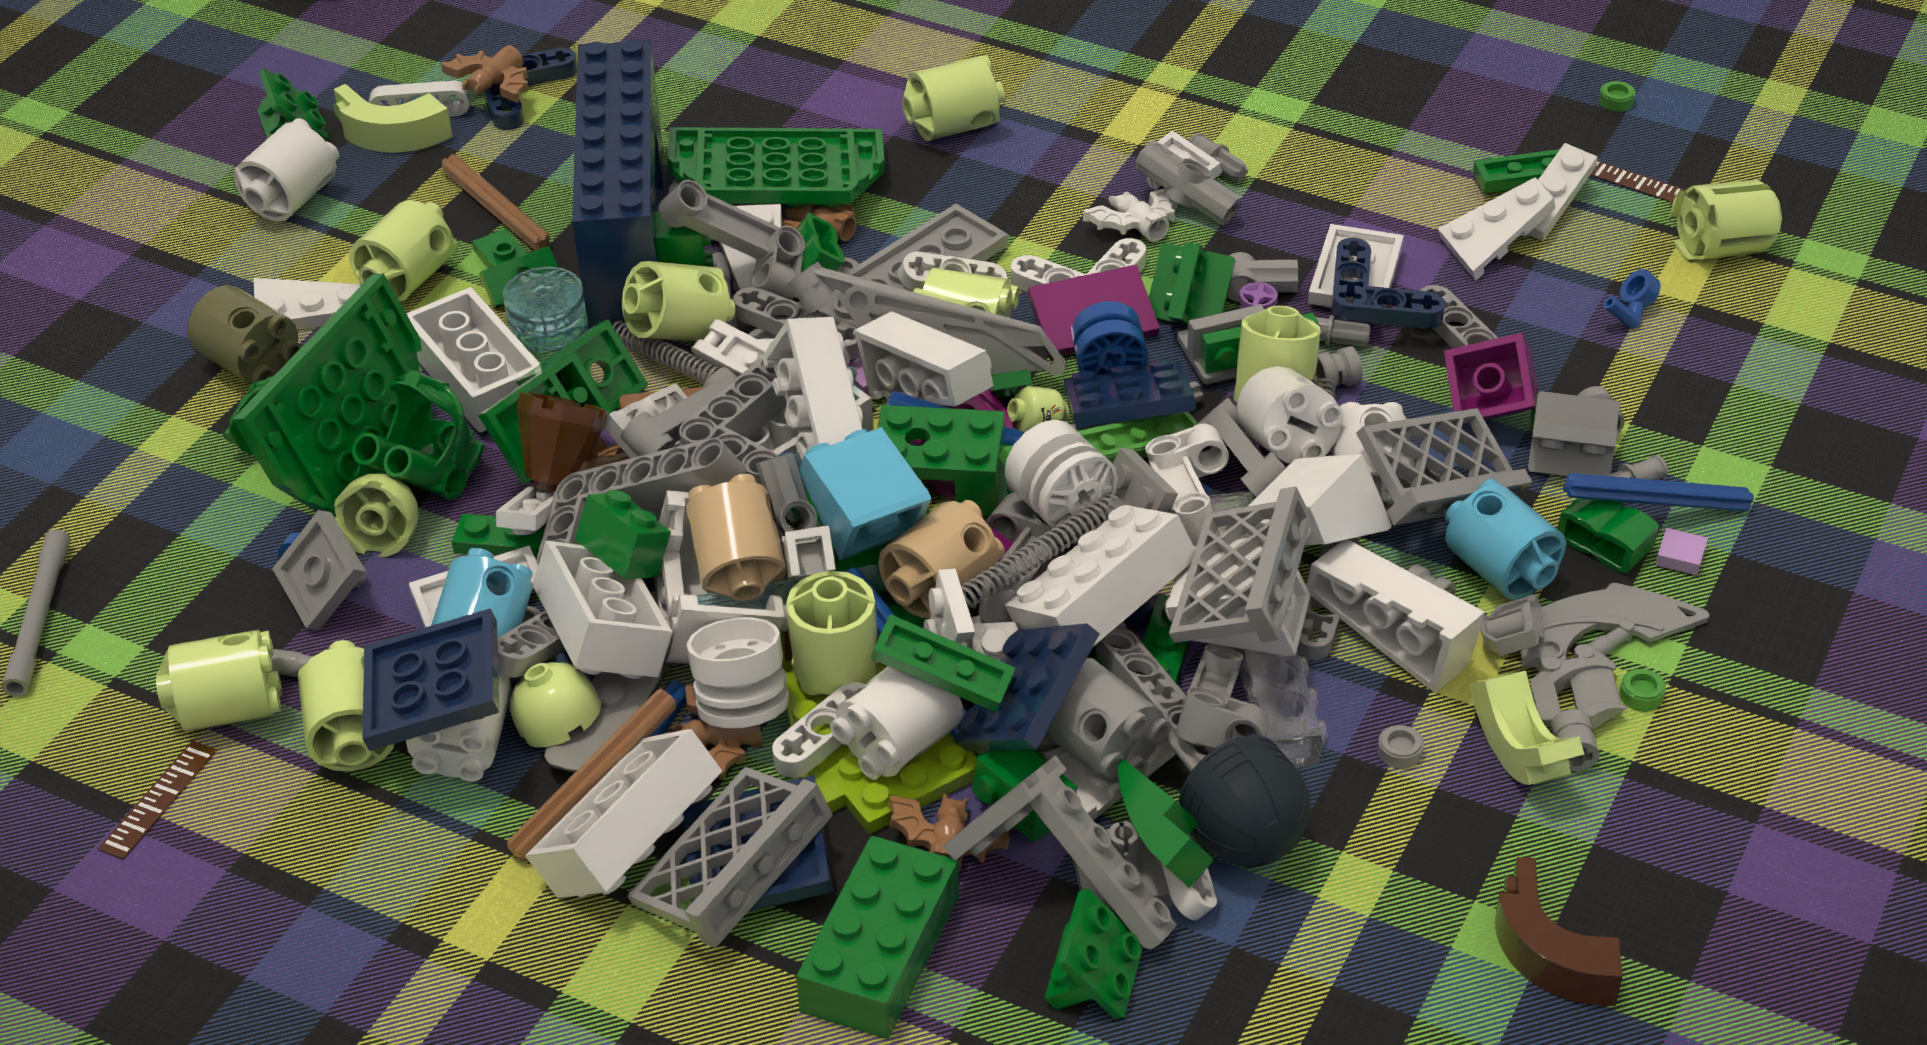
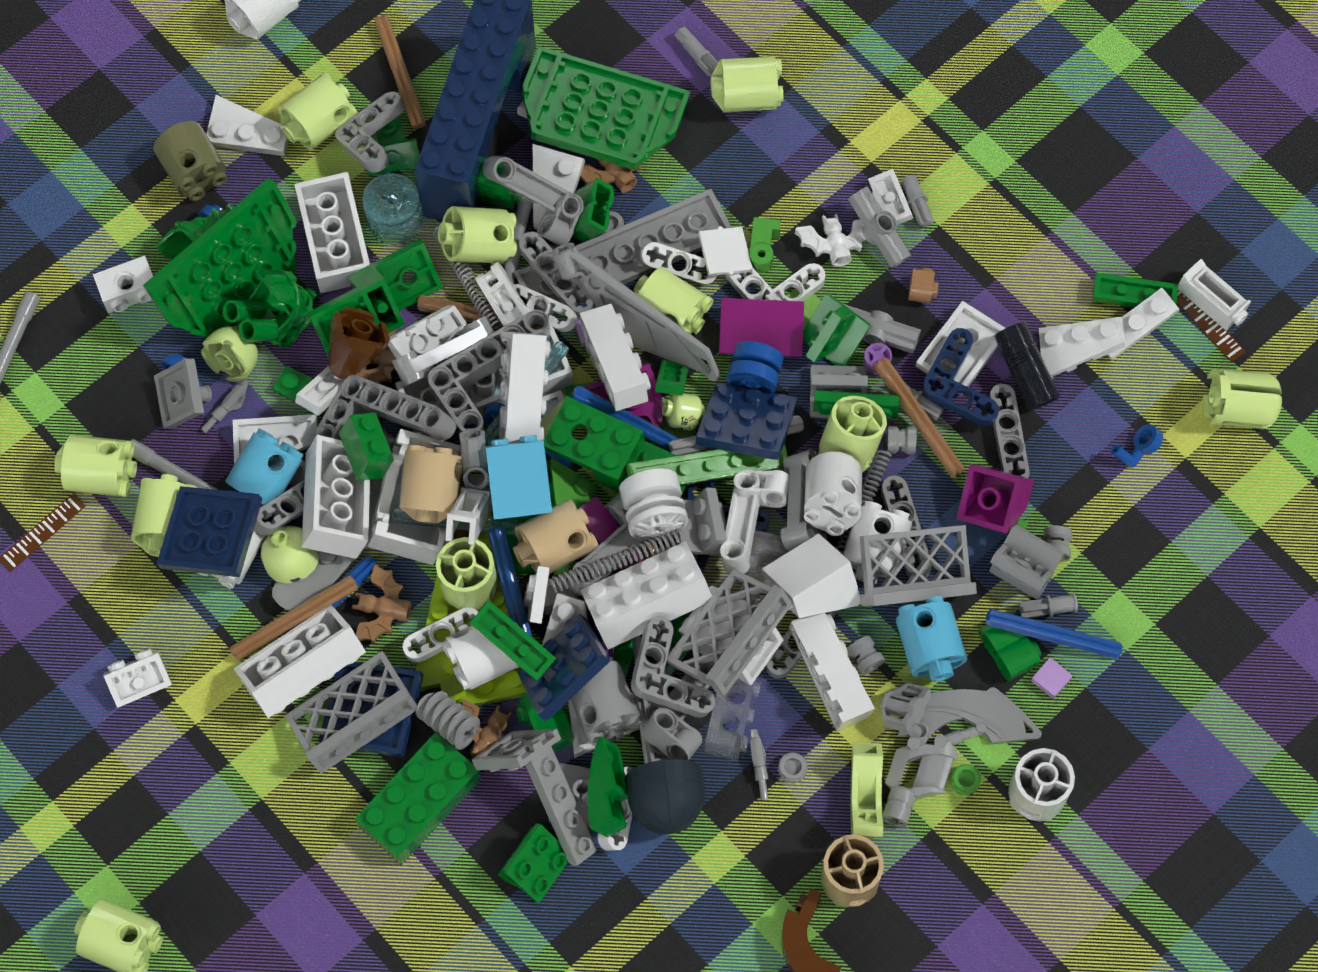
camera: 20 degrees right, 25 degrees up
(195, 488) = (111, 284): none -> white brick
(375, 920) = (136, 678): none -> white bracket
(399, 571) = (232, 401): none -> light grey hand
(479, 251) = (383, 110): none -> light grey beam
(738, 672) = (399, 582): white wheel -> none
(879, 100) = (702, 57): none -> light grey piece
(882, 812) = (448, 718): none -> light grey piece
(1007, 249) = (725, 251): none -> white piece
(1047, 234) = (760, 249): none -> bright green leg
(1176, 663) = (655, 675): none -> light grey beam
(1272, 224) = (922, 285): none -> medium nougat plate
(1345, 336) = (919, 417): none -> medium nougat axle
(1349, 747) = (759, 762): none -> light grey hand
(1456, 257) = (1028, 366): none -> black piece
(1563, 815) = (851, 870): none -> tan cylinder
(1617, 96) = (1241, 234): bright green tile -> none
(1628, 147) = (1214, 296): none -> white window
(1753, 645) = (1041, 784): none -> white cylinder

